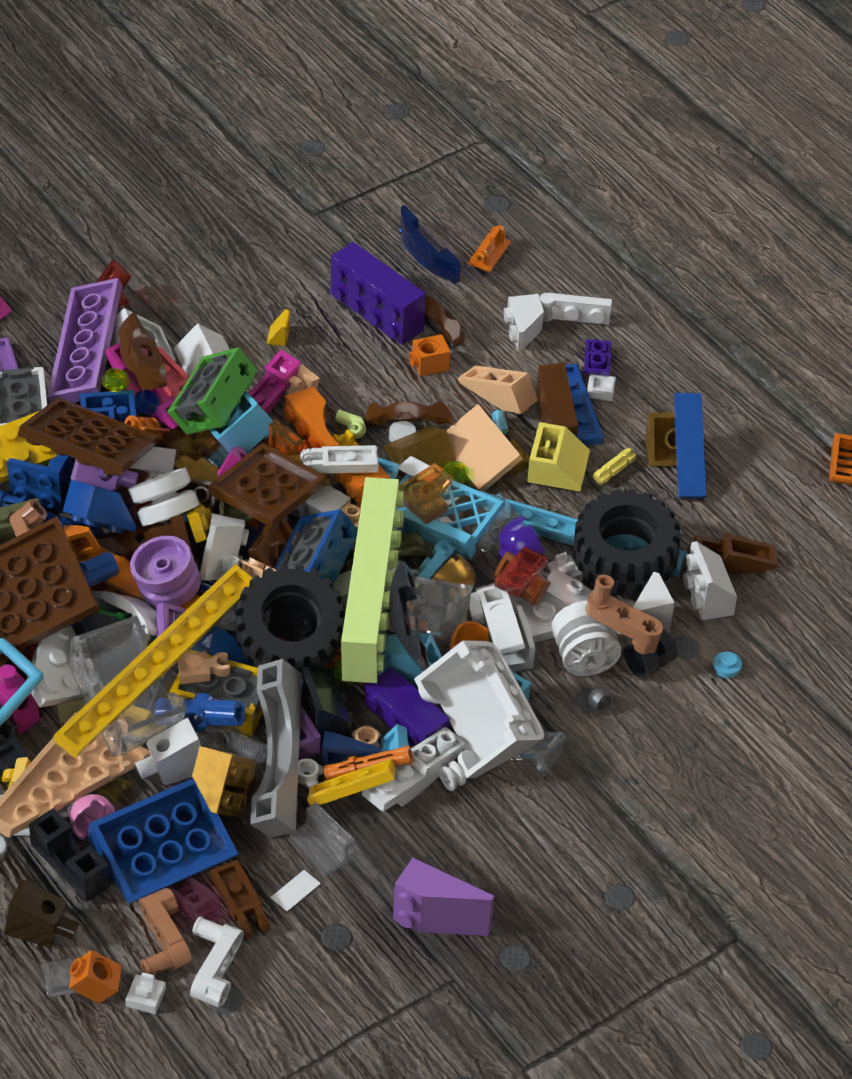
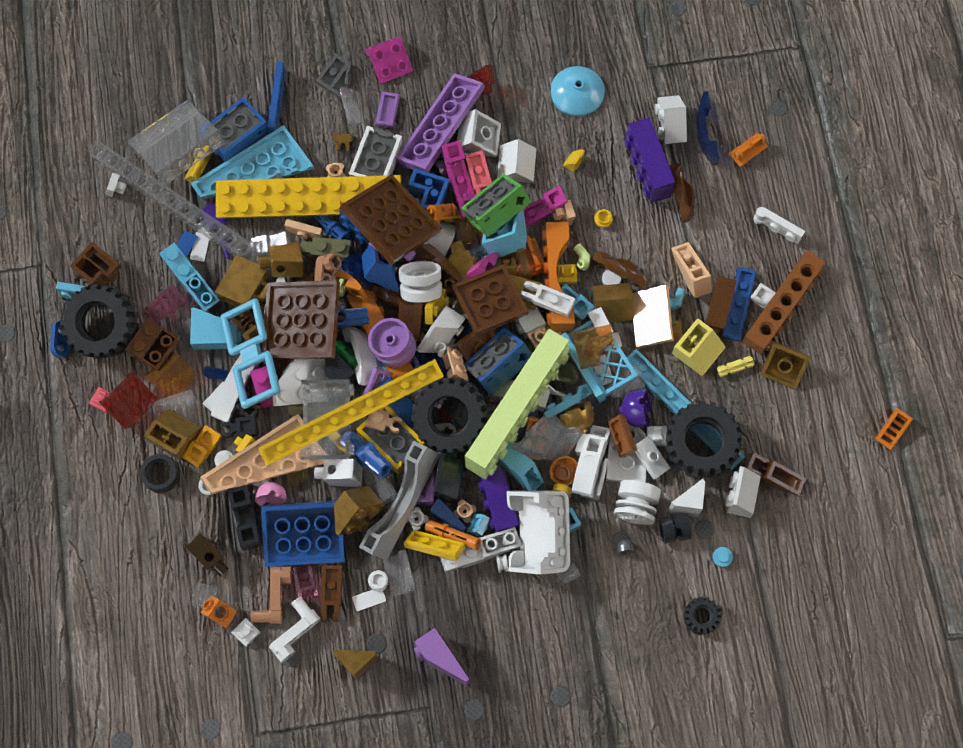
camera: 30 degrees right, 25 degrees up
(115, 380) = (439, 169): clear neon green plate -> none
(146, 402) = (452, 192): clear blue plate -> none
(148, 369) = (463, 172): reddish brown piece -> none
(239, 264) = (574, 99): none -> medium azure dish
(296, 862) = (378, 580): none -> white tile
(321, 952) = (356, 661): none -> pearl gold slope
(353, 375) = (603, 218): none -> yellow plate
(382, 242) = (672, 114): none -> white brick
(401, 592) = (530, 424): black slope -> none
(430, 355) = (664, 217): orange brick -> none
(457, 470) = (626, 328): clear neon green plate -> none
(521, 572) = (618, 437): clear red plate -> none
(525, 319) = (741, 219): white slope -> none
(597, 357) = (772, 272): dark purple slope -> none
(608, 610) = (655, 497): nougat beam -> none
(631, 382) = (808, 263): none -> dark orange brick
(689, 446) = (789, 378): blue tile -> none
(740, 745) = (695, 626): none -> black tyre

